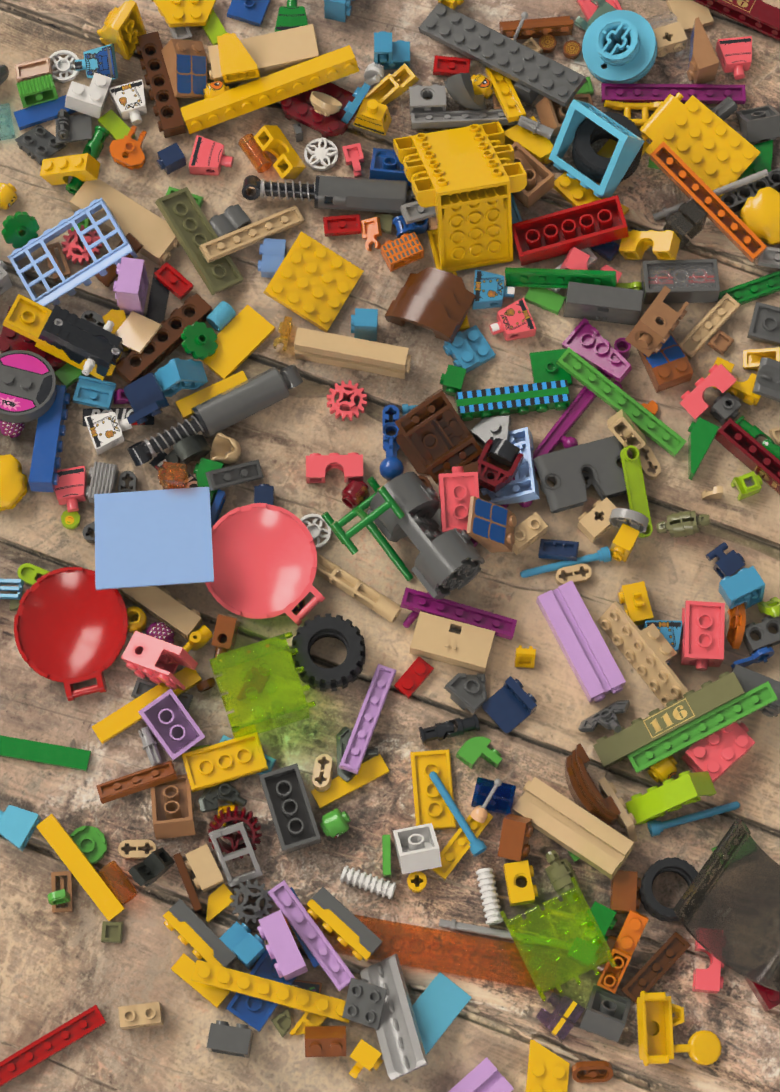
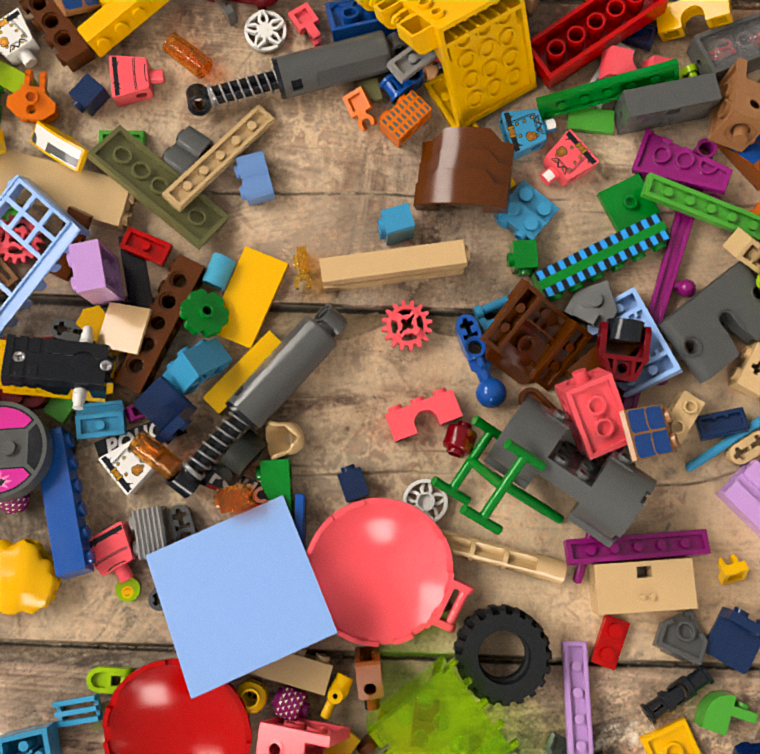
camera: 20 degrees left, 10 degrees up
(127, 426) = (155, 455): none -> clear orange pin
(137, 188) = (59, 146): none -> slope
(234, 475) = (307, 468): dark grey tile -> none
(274, 141) = (204, 33): yellow arch -> none
(313, 281) = (314, 191): yellow plate -> none
(342, 225) = (322, 110): red plate -> none

